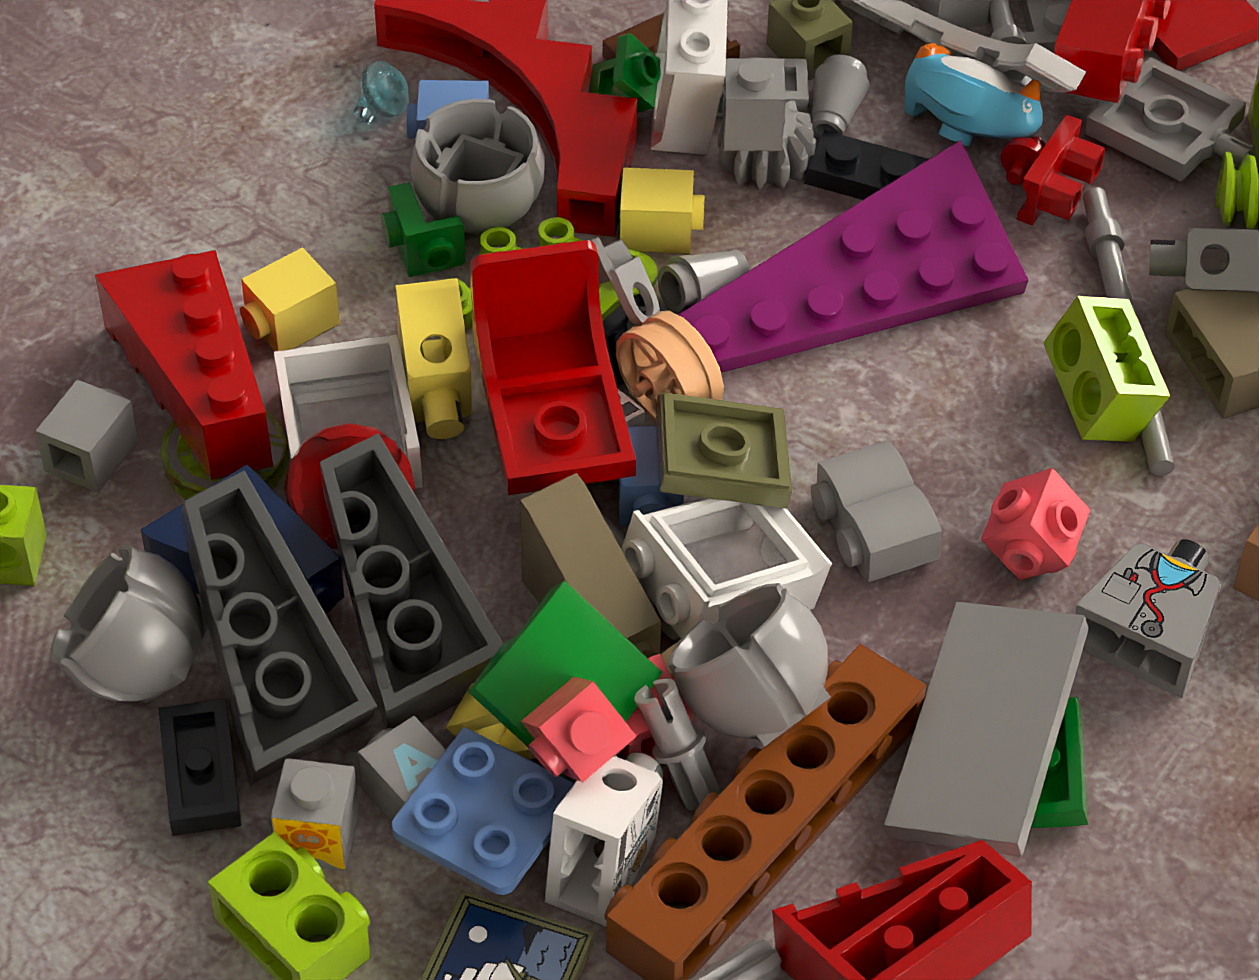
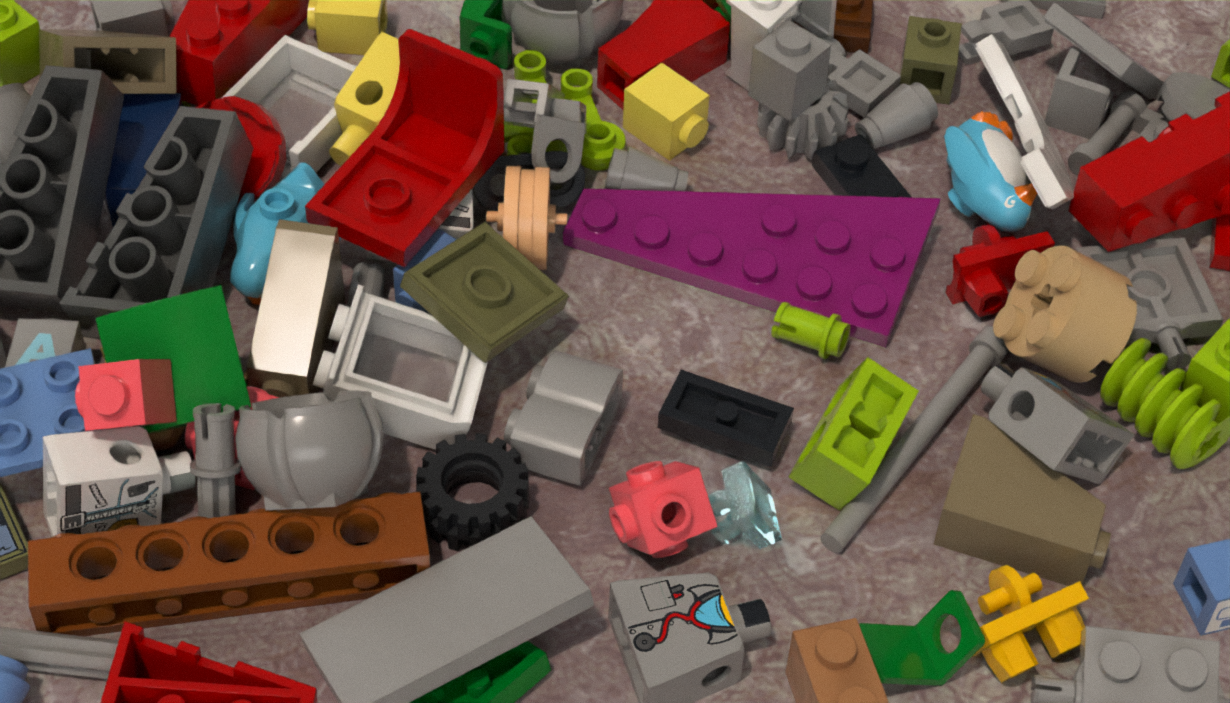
camera: 40 degrees right, 0 degrees up
(143, 483) = (128, 59): none -> dark tan slope
(476, 523) = (256, 226): none -> medium azure animal
(883, 592) = (472, 462): none -> black tyre
(969, 314) = (811, 330): none -> lime pin
(988, 427) = (725, 418): none -> black plate
(1088, 480) = (749, 508): none -> clear light blue tile
(1155, 168) = (1066, 313): none -> tan brick

